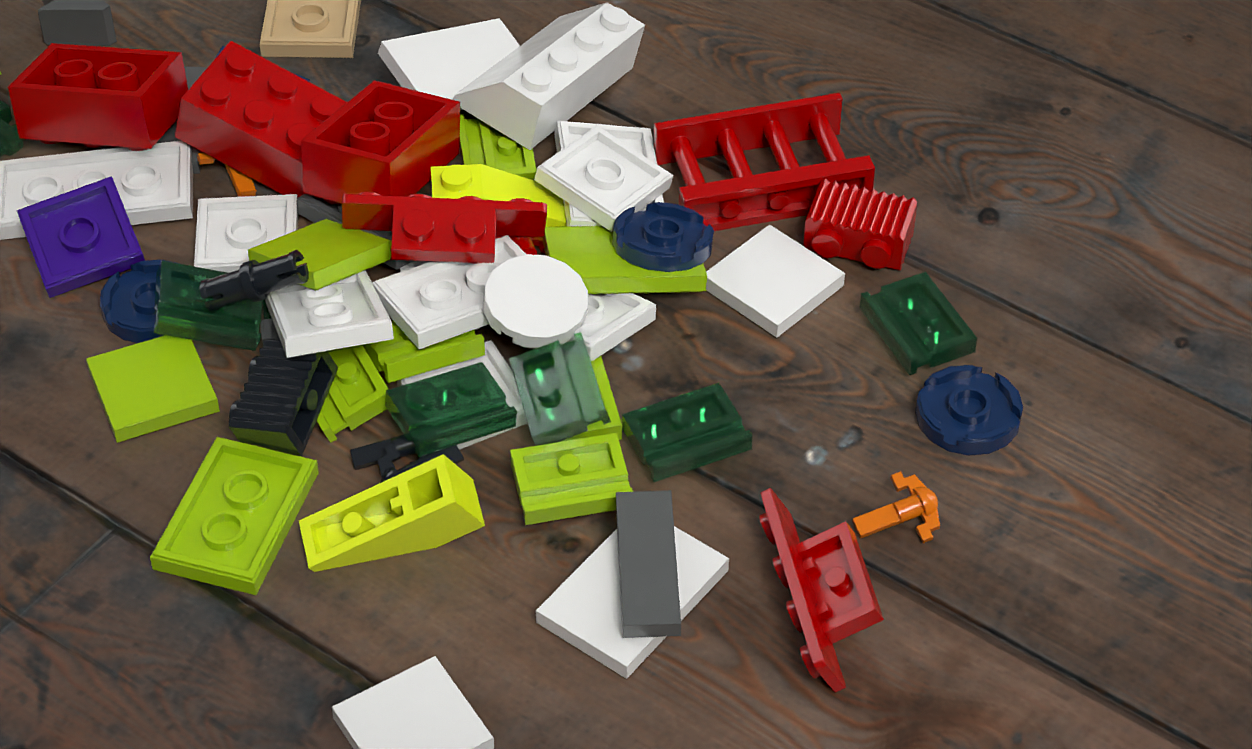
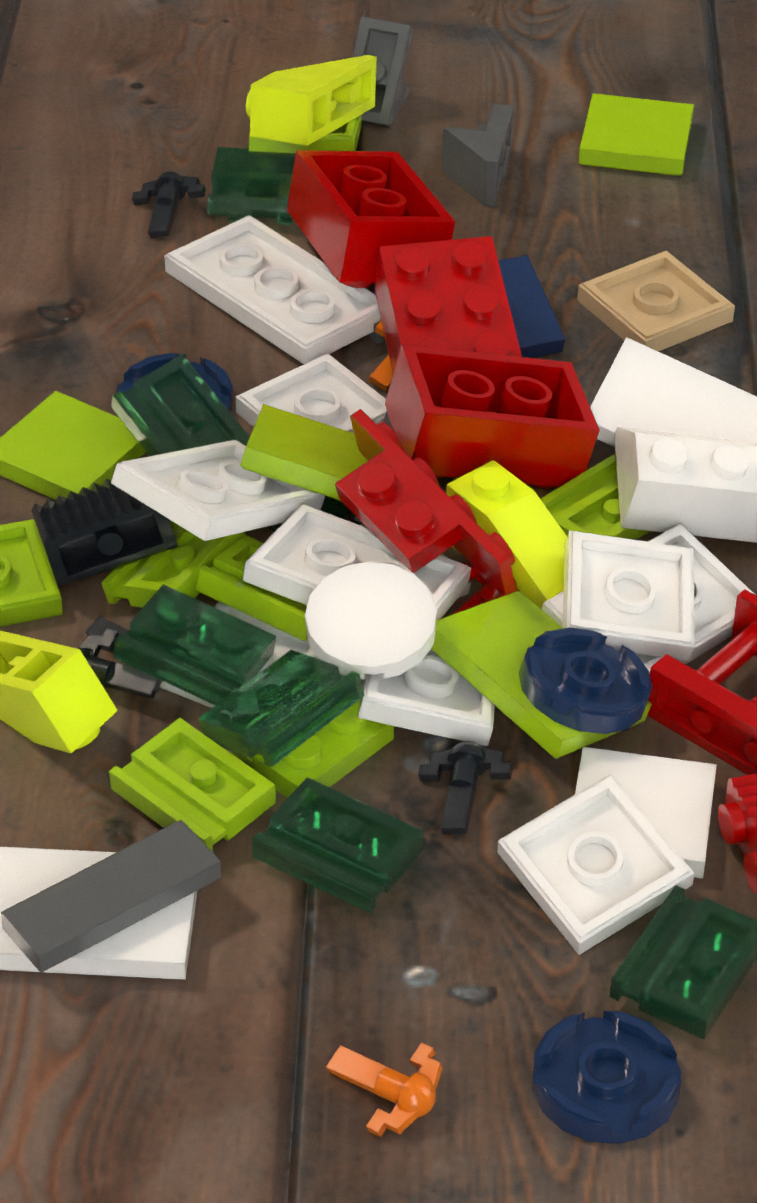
camera: 55 degrees right, 5 degrees down
(80, 236) = (200, 307): dark purple tile -> none
(254, 281) = (205, 419): black pin -> none
(663, 335) = (466, 762): none -> black piece
(808, 320) = (594, 863): none -> white tile
(826, 585) = (196, 1053): red bracket -> none

